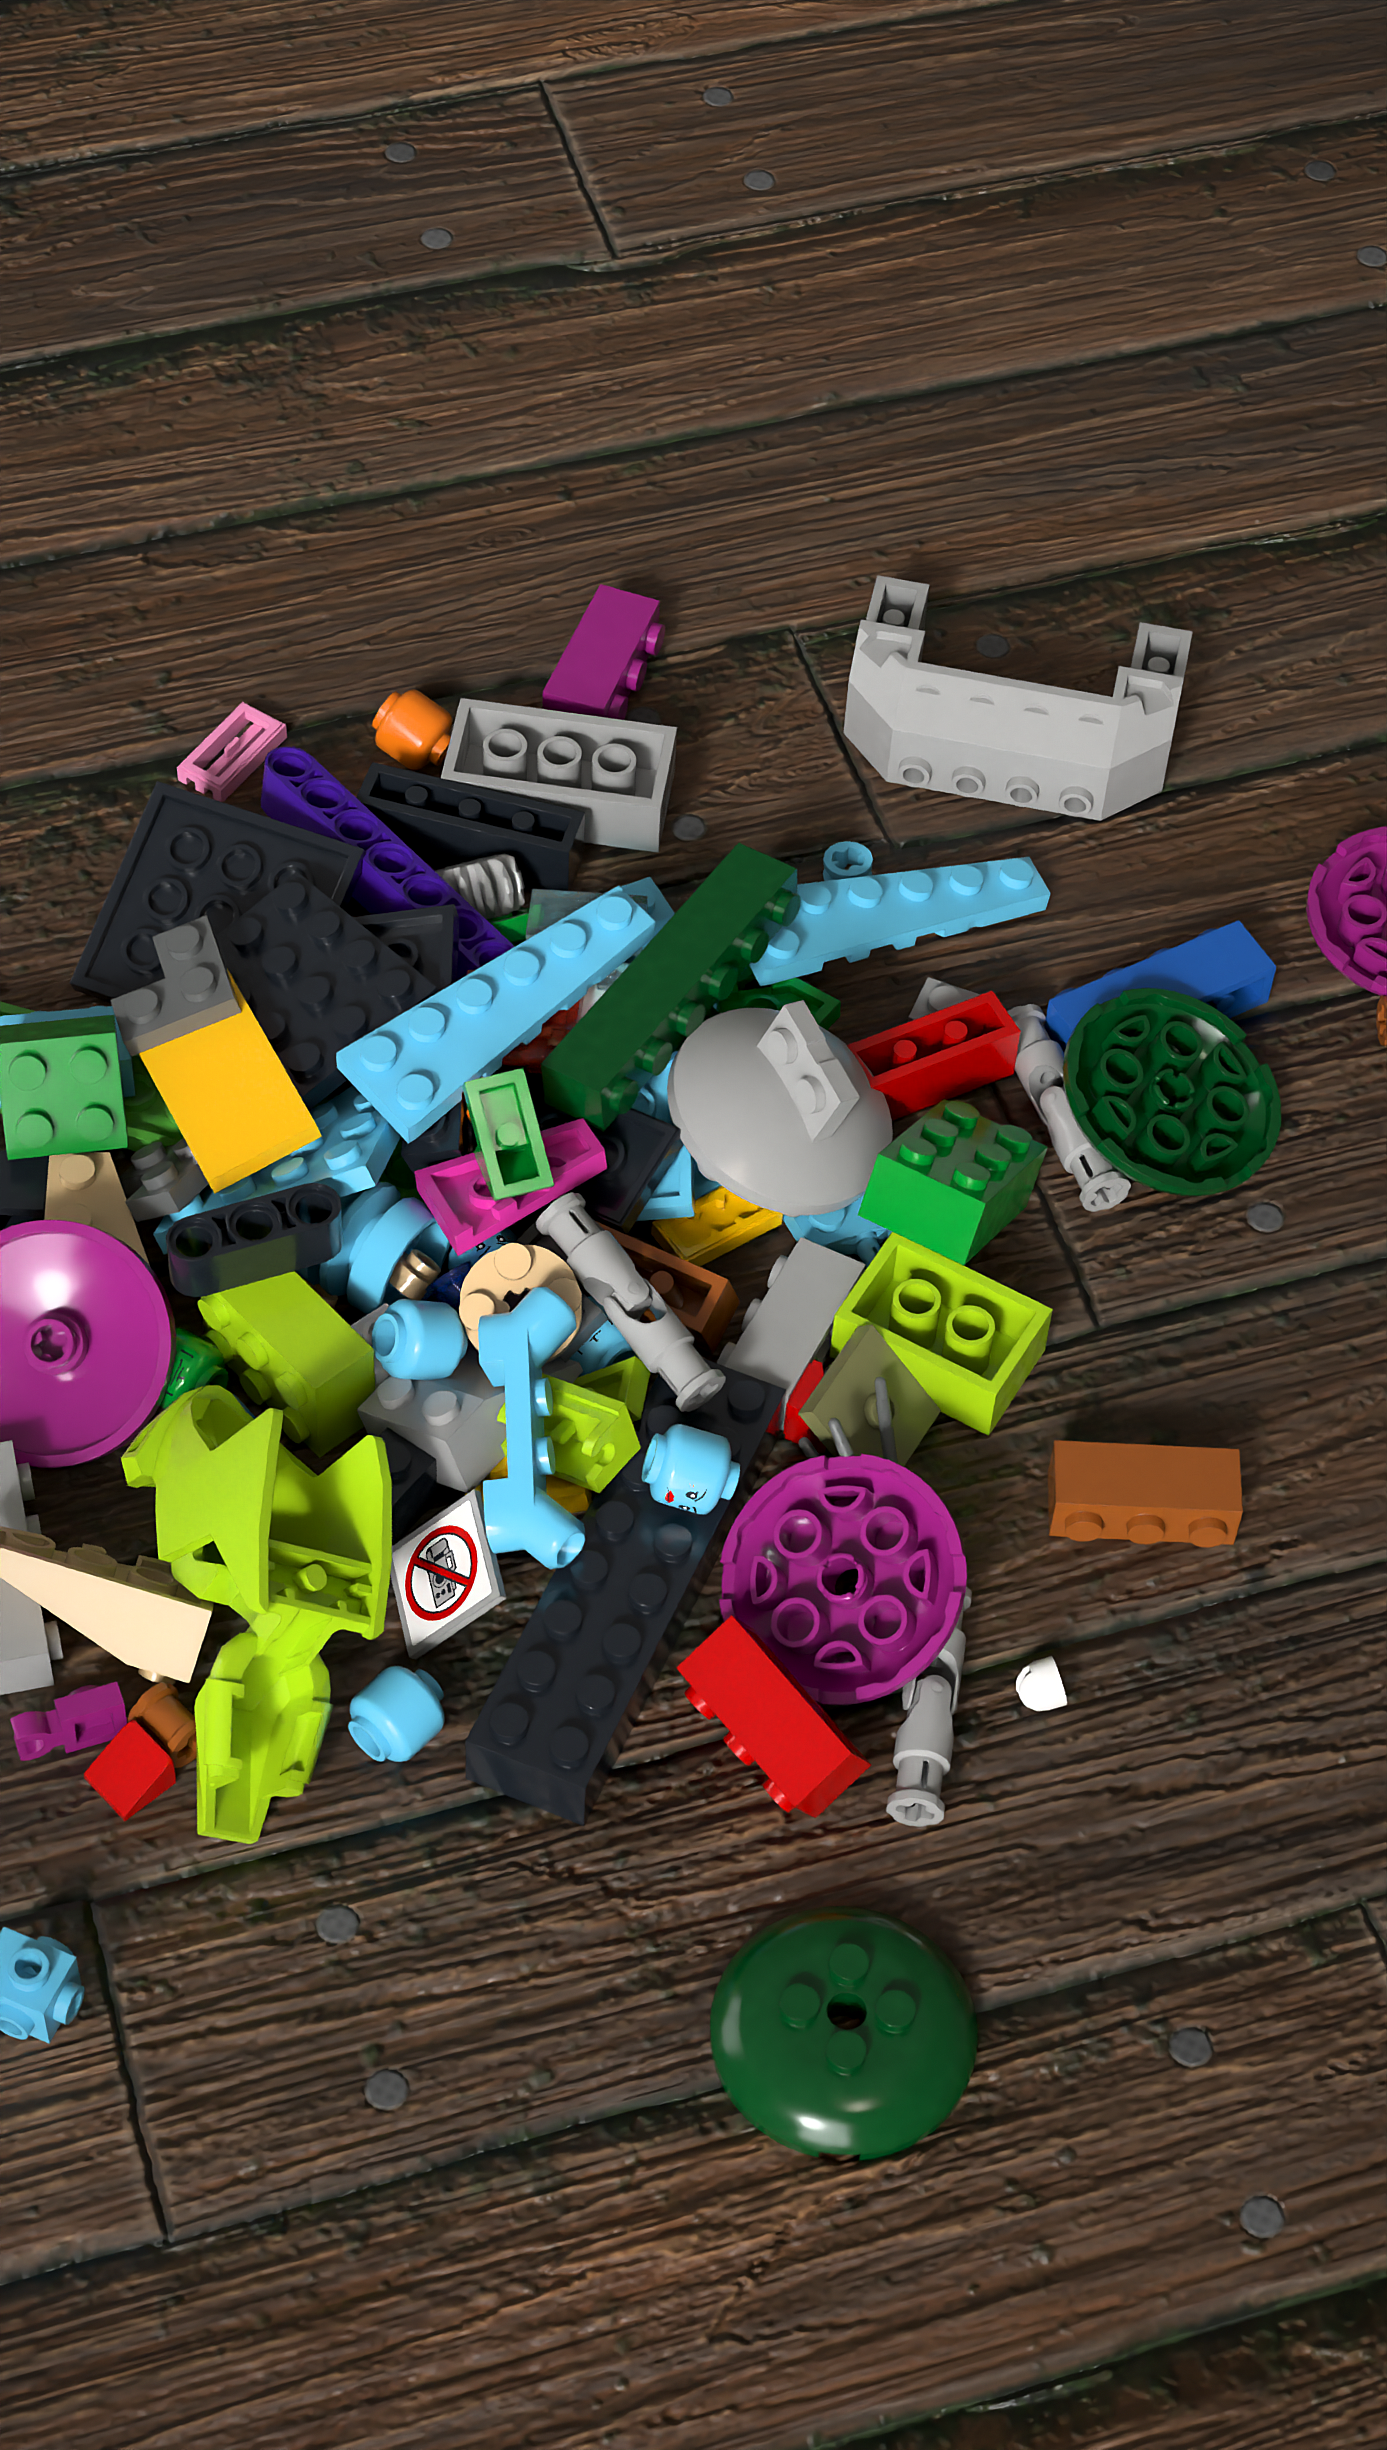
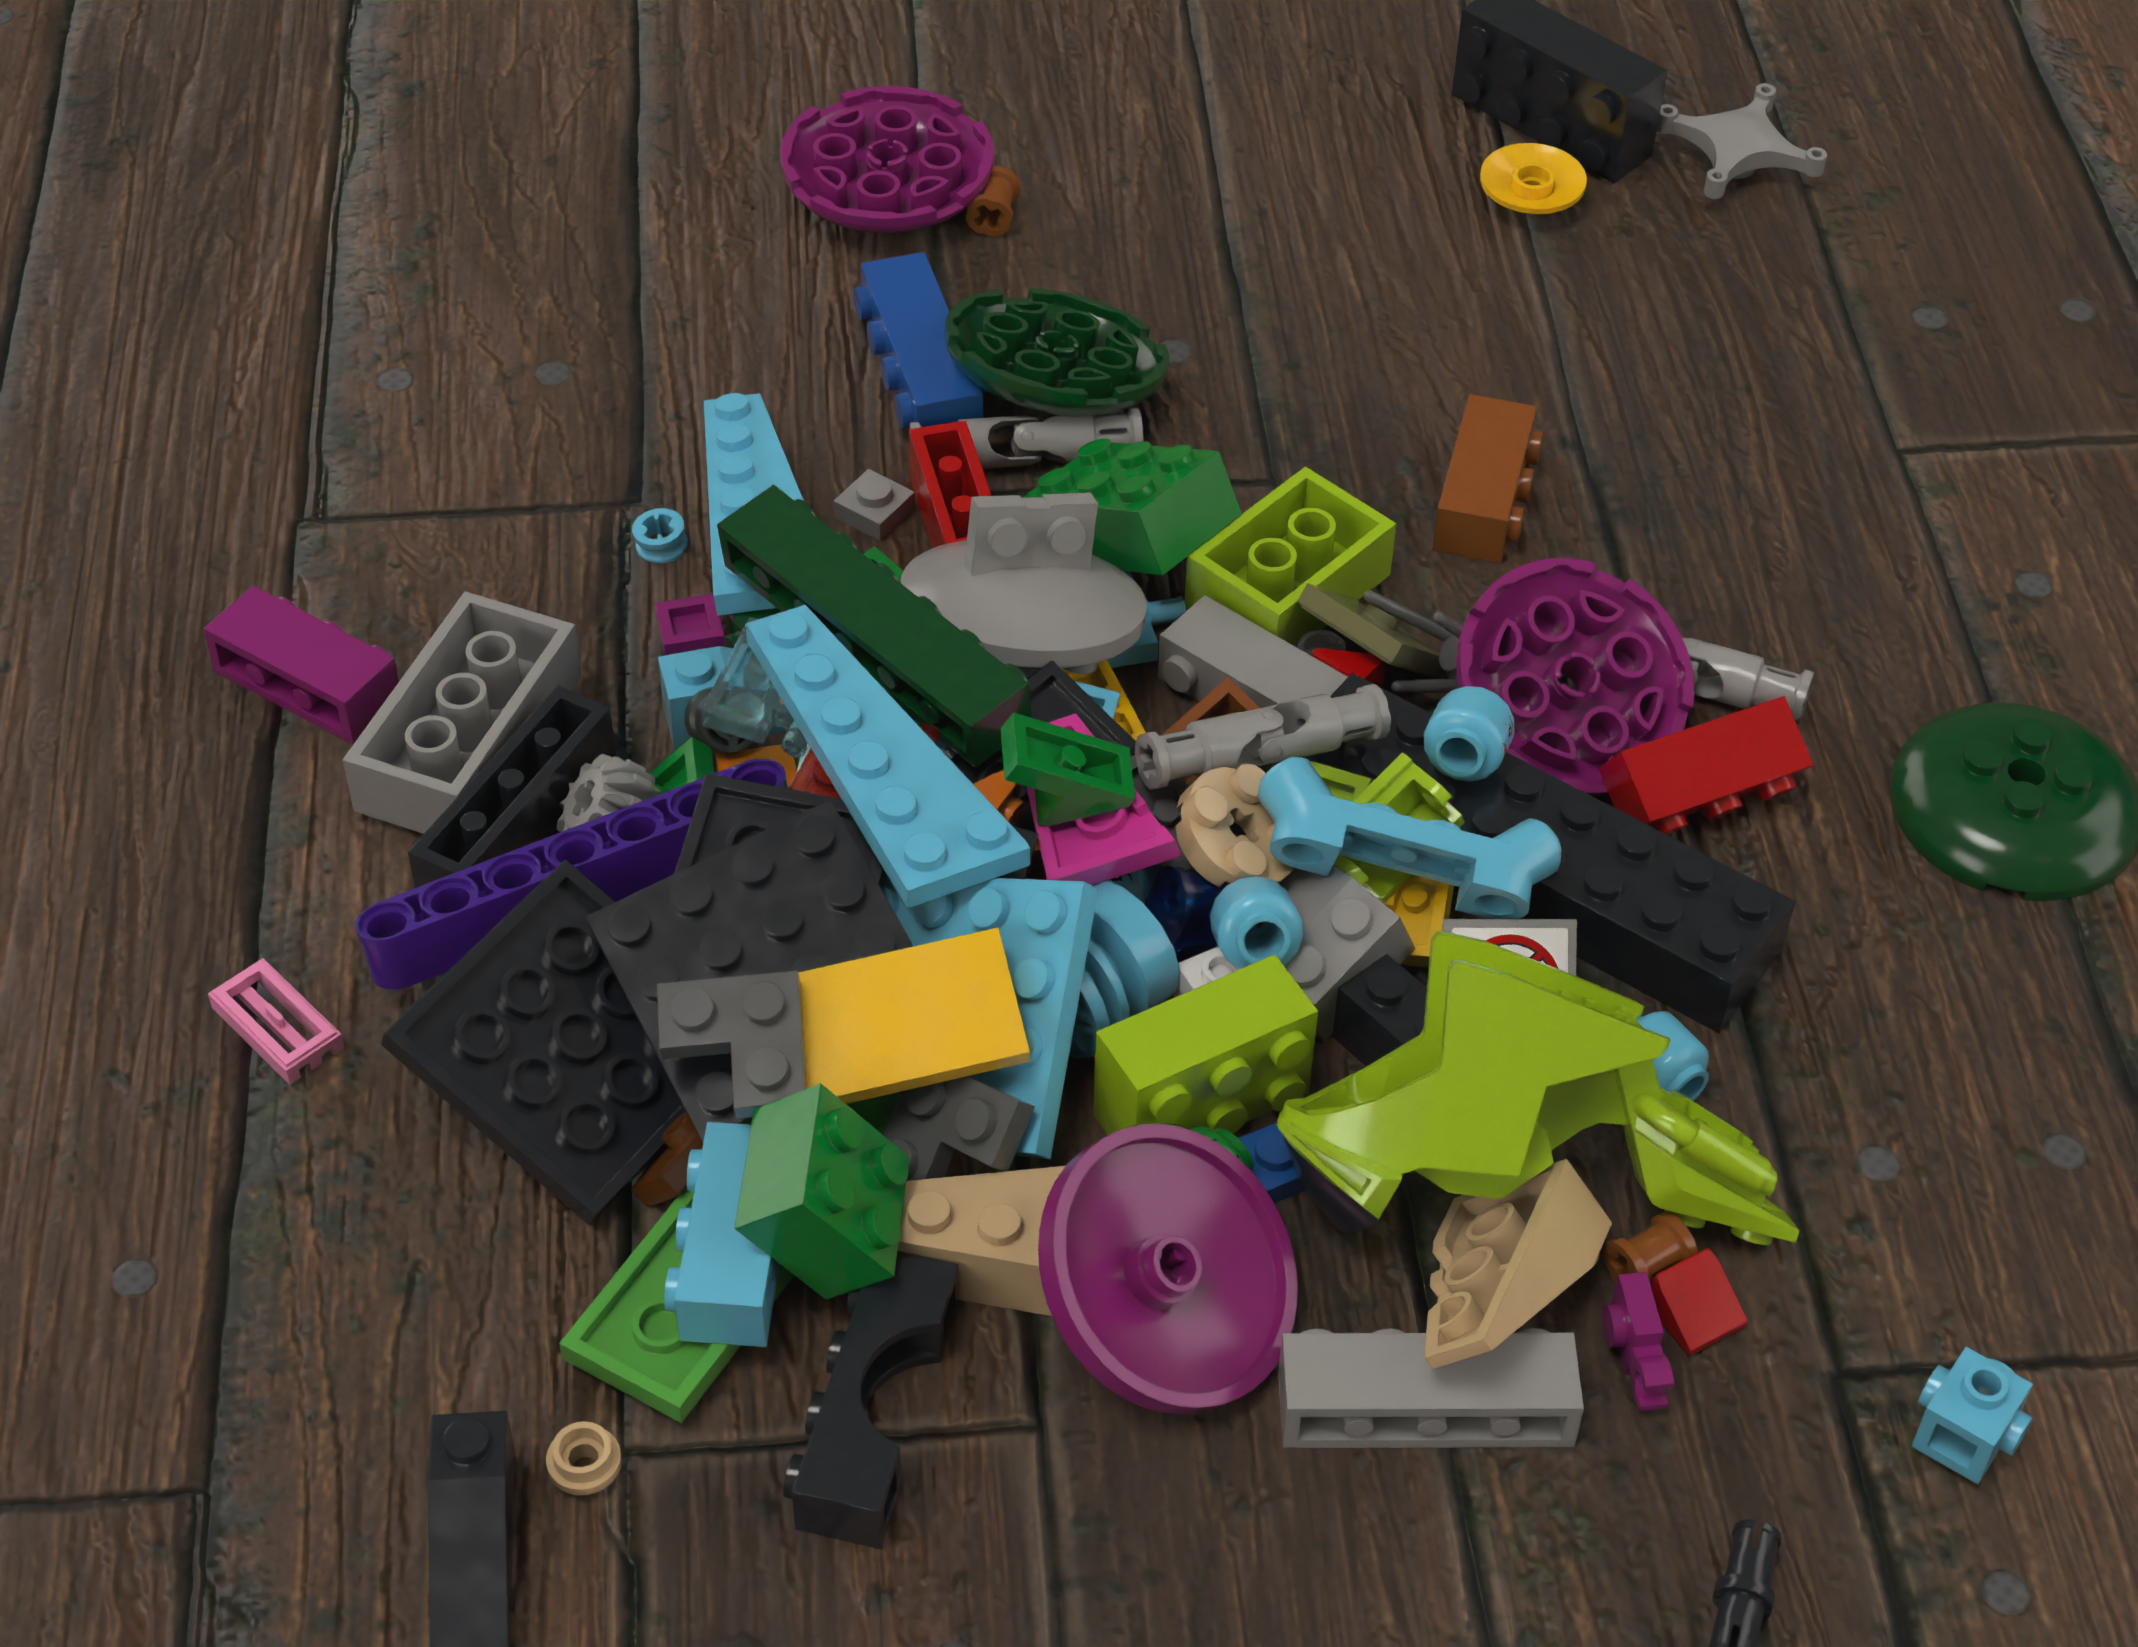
camera: 75 degrees left, 5 degrees down
(229, 1244) = (1132, 1015): black beam -> none
(413, 729) = (331, 837): orange head -> none
(1005, 734) = (547, 394): light grey wedge -> none
(1041, 1685) = (1676, 587): white hinge -> none

